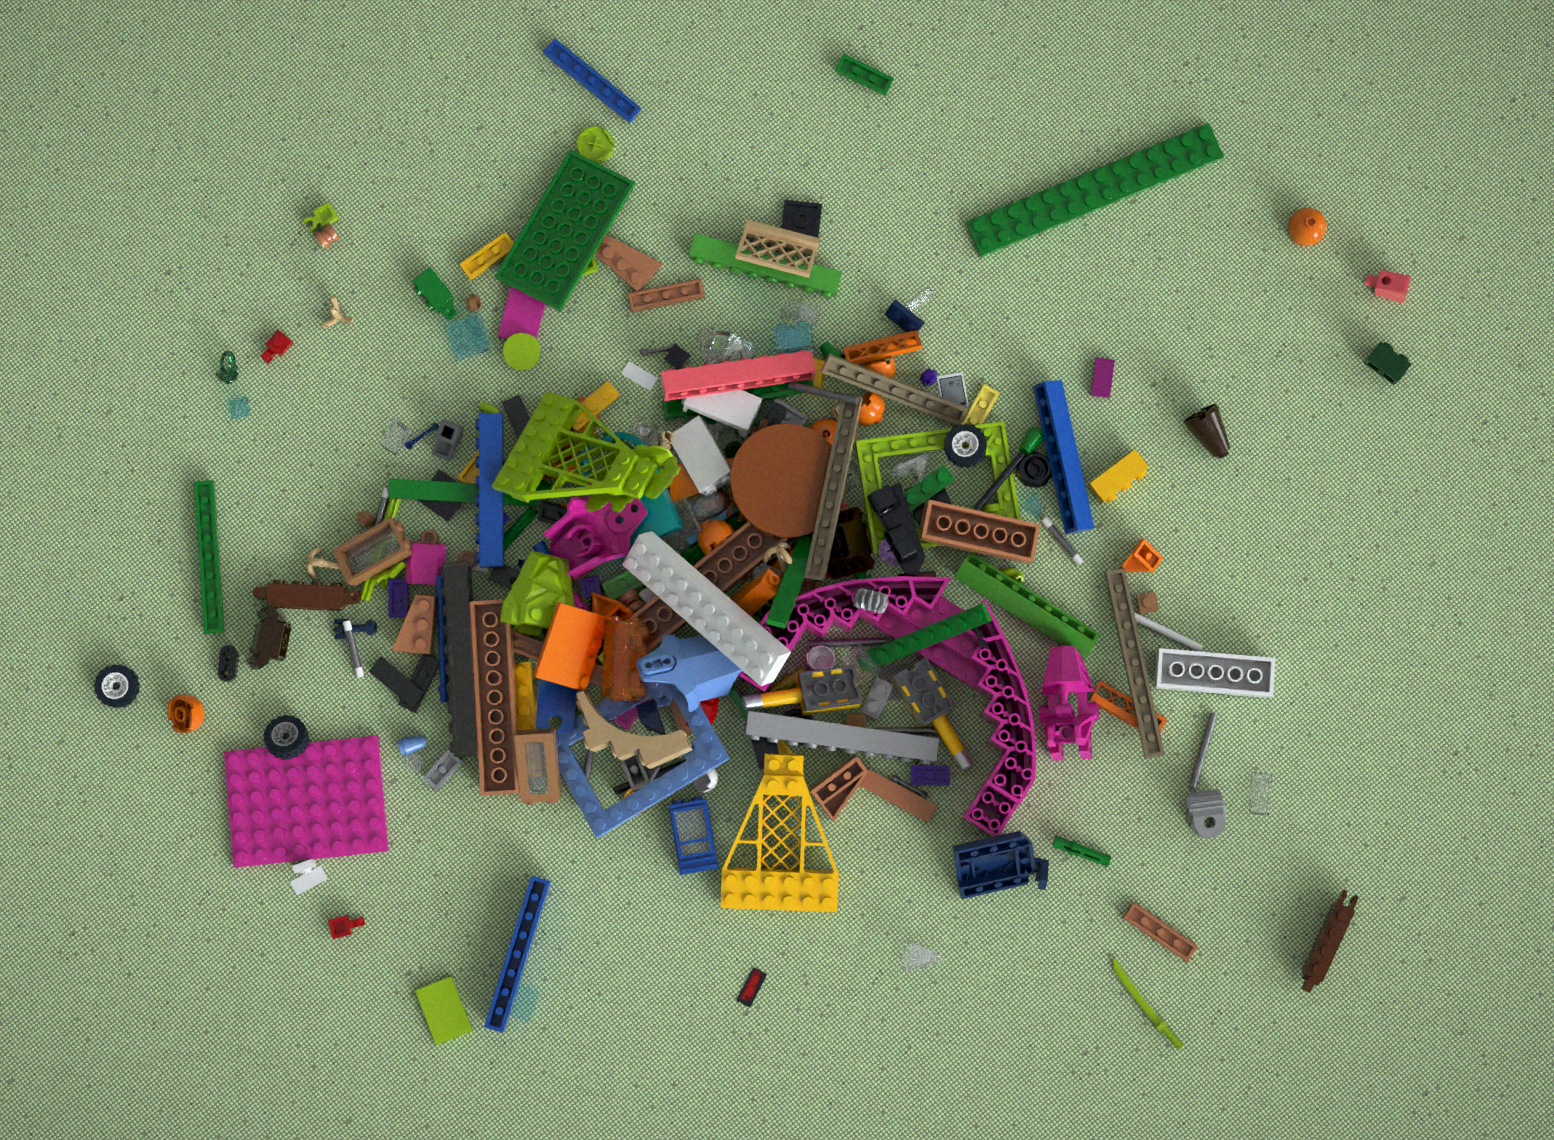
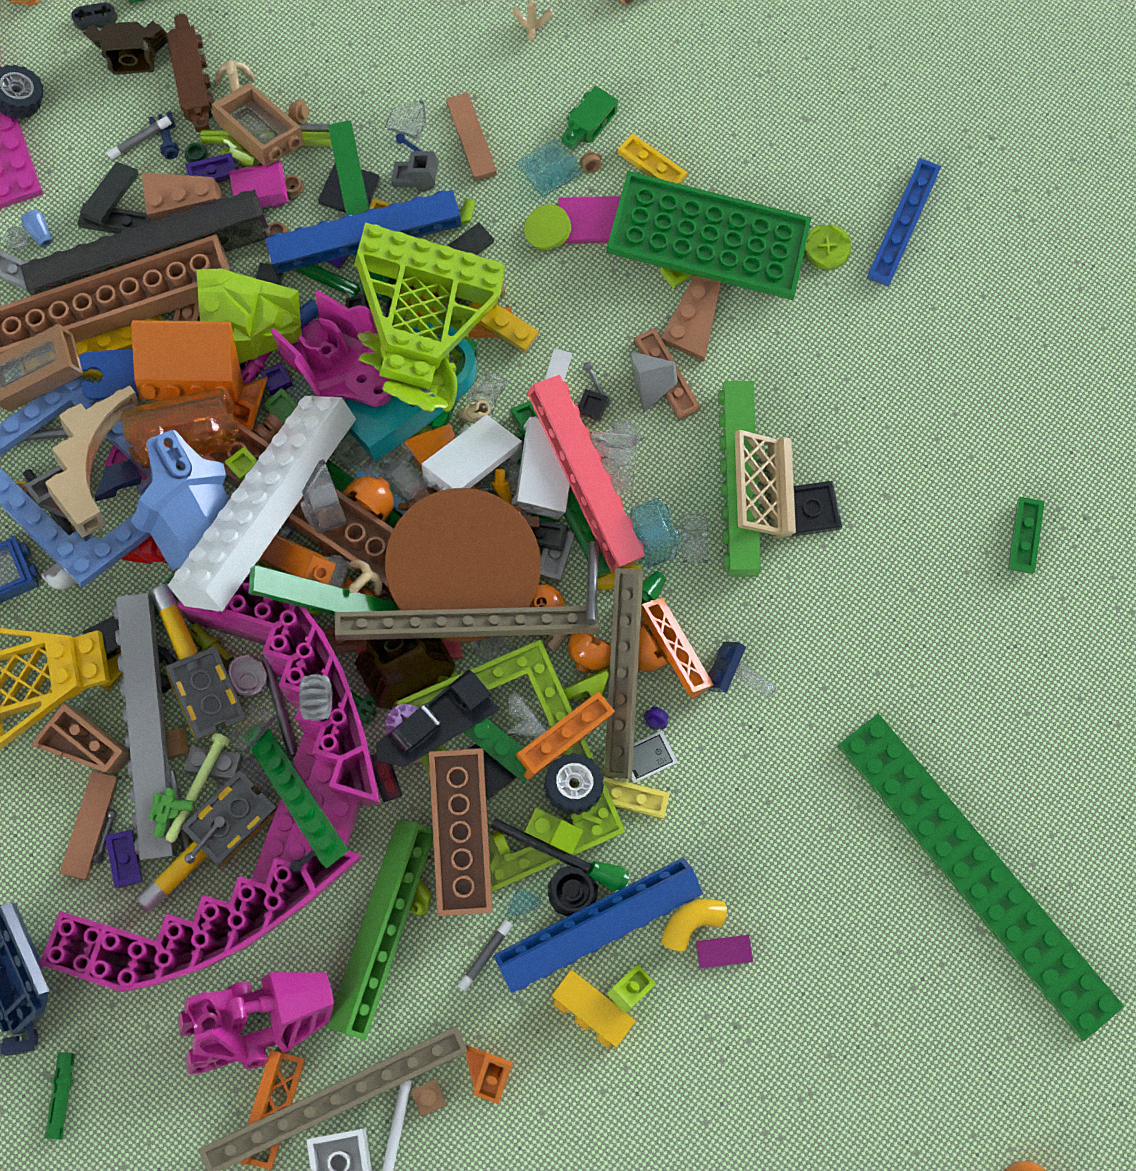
camera: 70 degrees right, 10 degrees down
(379, 607) = (196, 152): none -> dark green plate
(423, 389) = (471, 136): none -> nougat tile
(666, 621) = (241, 463): none -> lime plate
(669, 307) = (652, 377): none -> light grey slope
(716, 567) = (321, 500): none -> clear slope
(729, 439) = (501, 486): none -> light orange bar
(893, 413) = (592, 683): none -> lime slope
(894, 710) = (219, 742): none -> yellowish green bar
(906, 733) = (167, 808): none -> bright green piece
(932, 441) = (564, 734): none -> orange fence
(946, 724) = (218, 822): none -> flat silver hinge
(991, 470) = (553, 830): none -> lime slope
(1075, 392) = (688, 918): none -> yellow cylinder
(1112, 447) = (631, 988): none -> lime slope
(1209, 430) = (692, 1122): dark brown cone -> none

